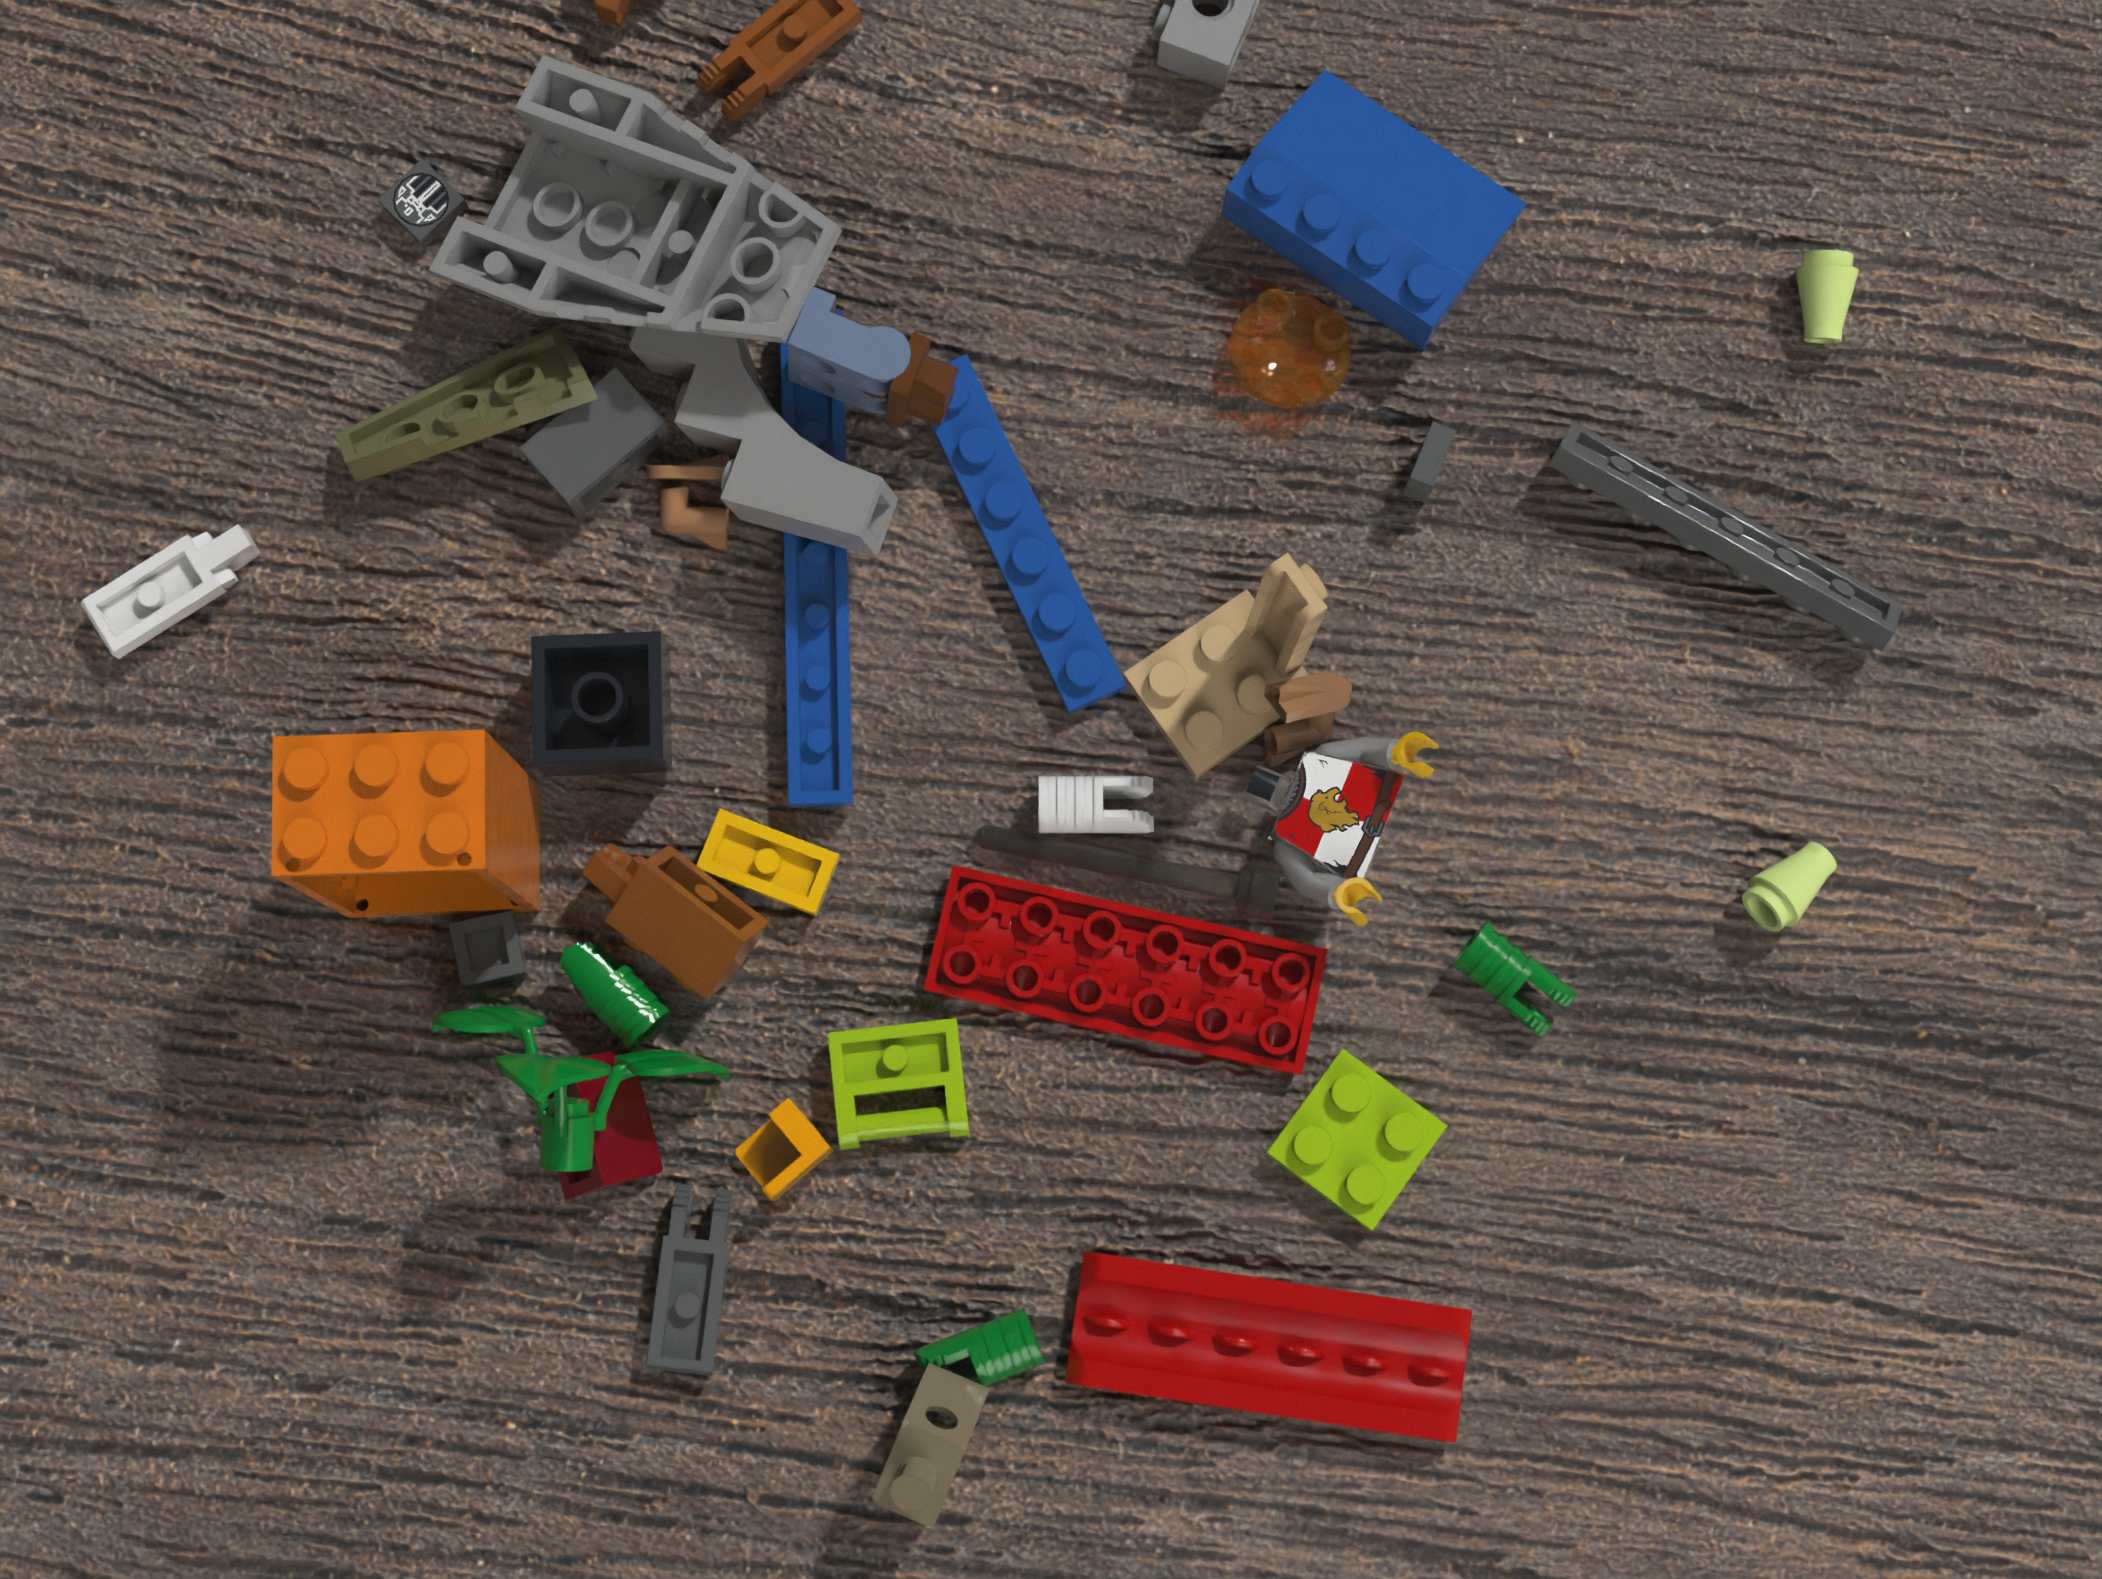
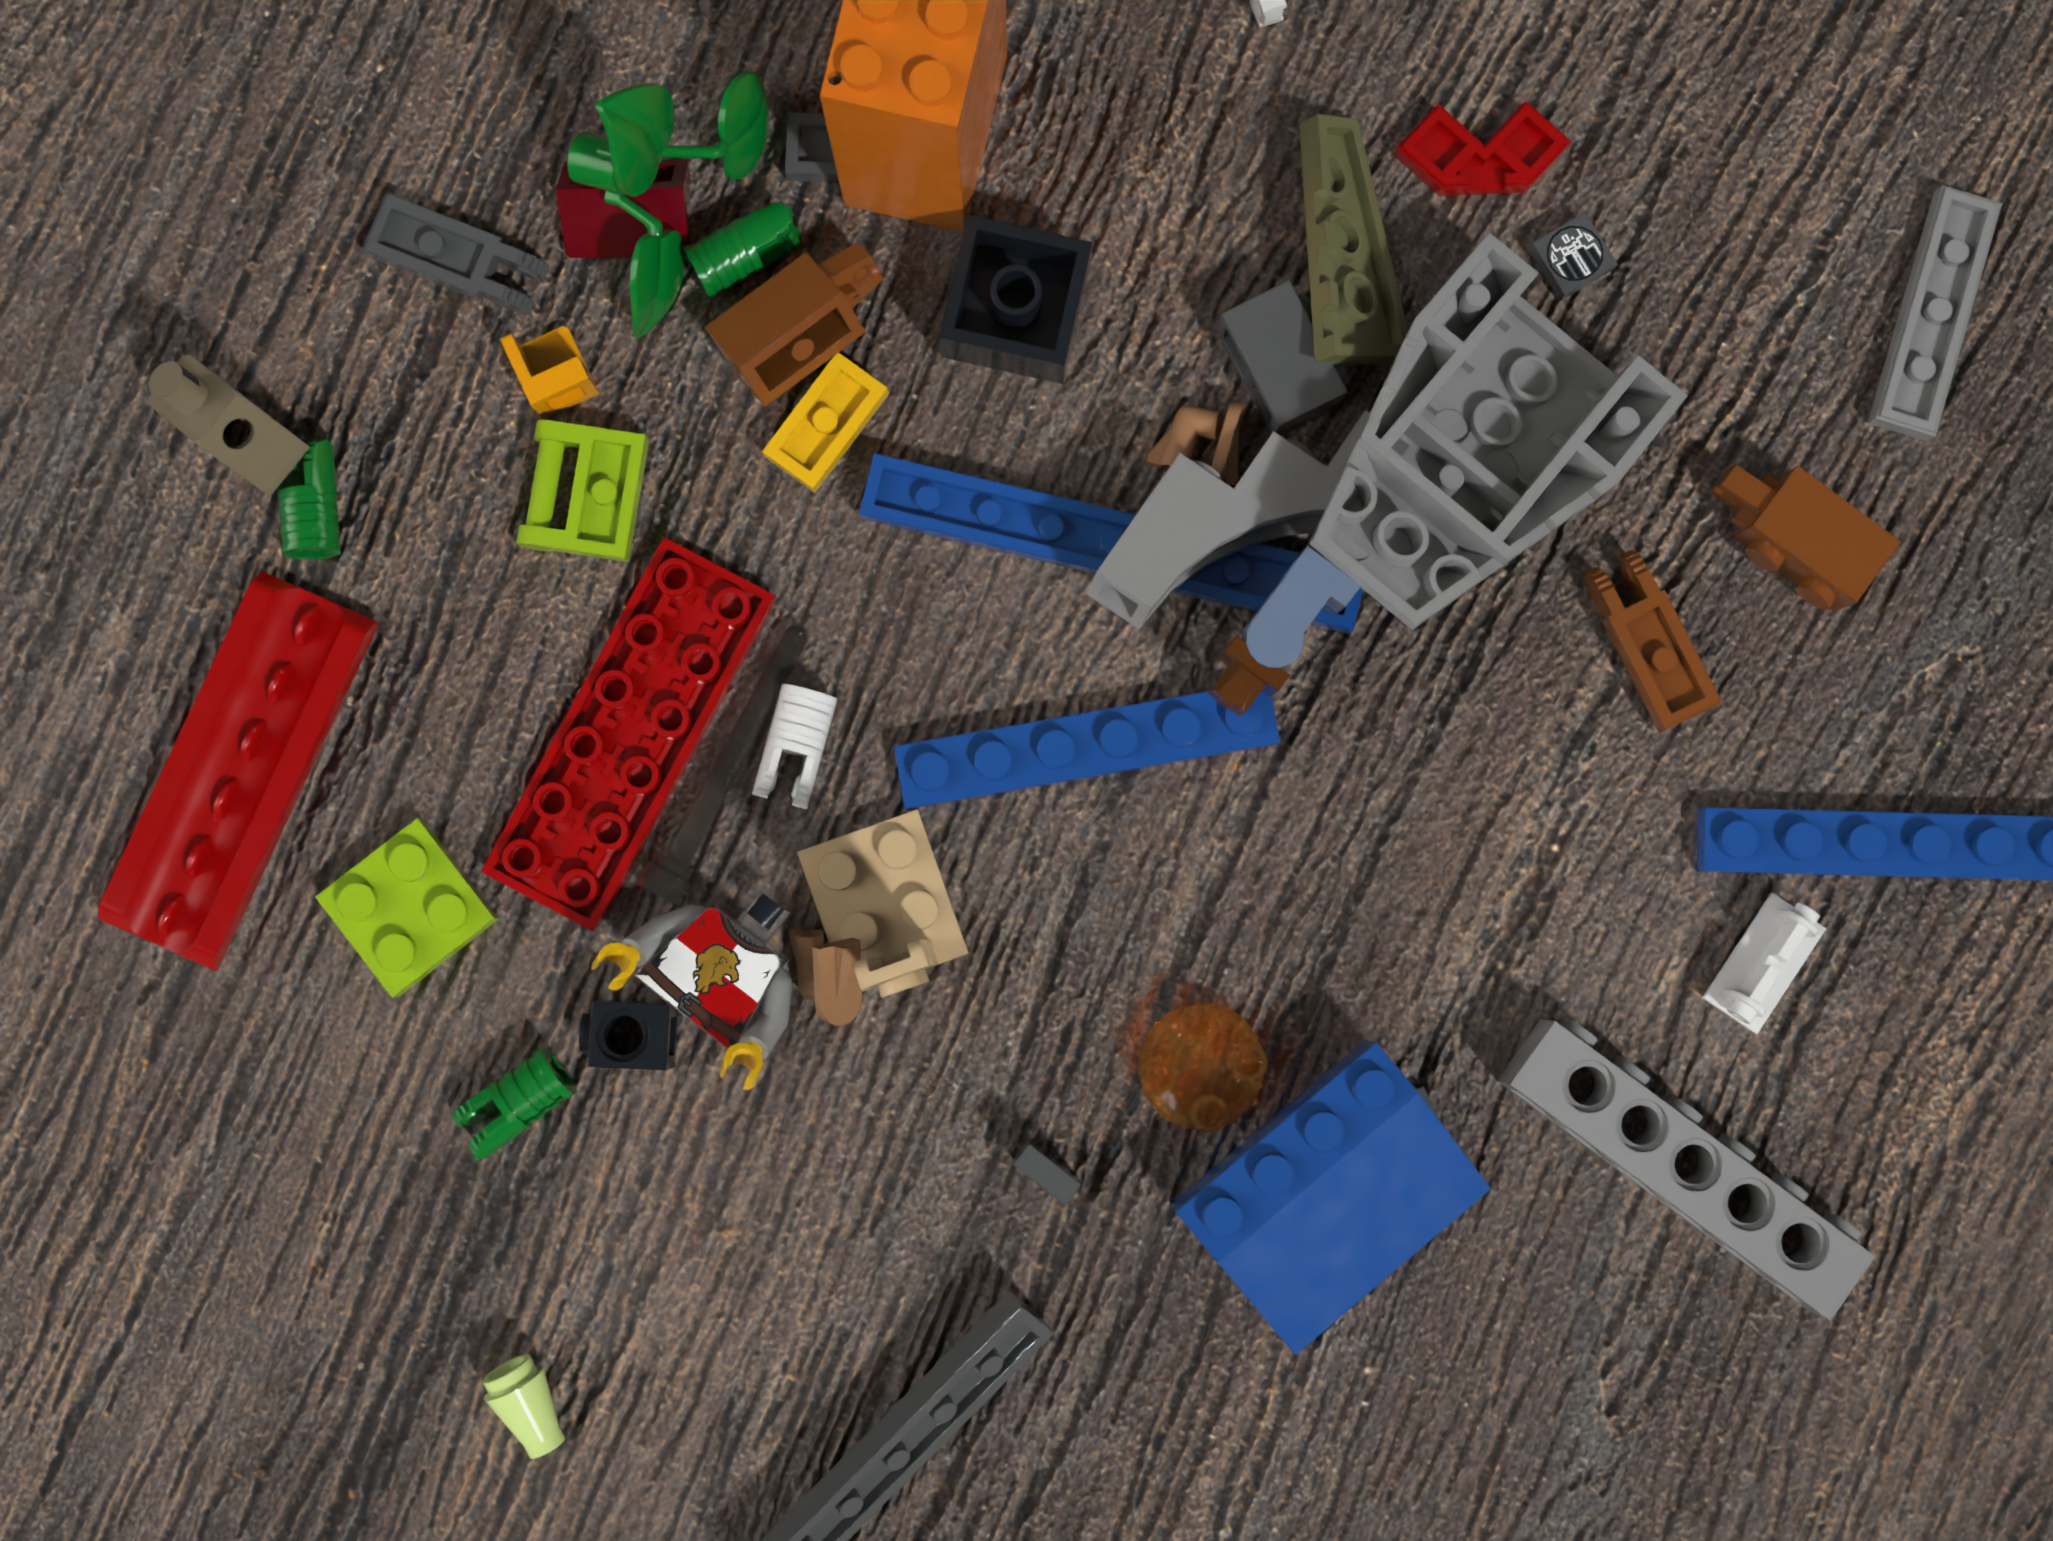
camera: 105 degrees right, 5 degrees up
(355, 330) = (1459, 164): none -> red tile
(1420, 854) = (659, 1039): none -> black brick

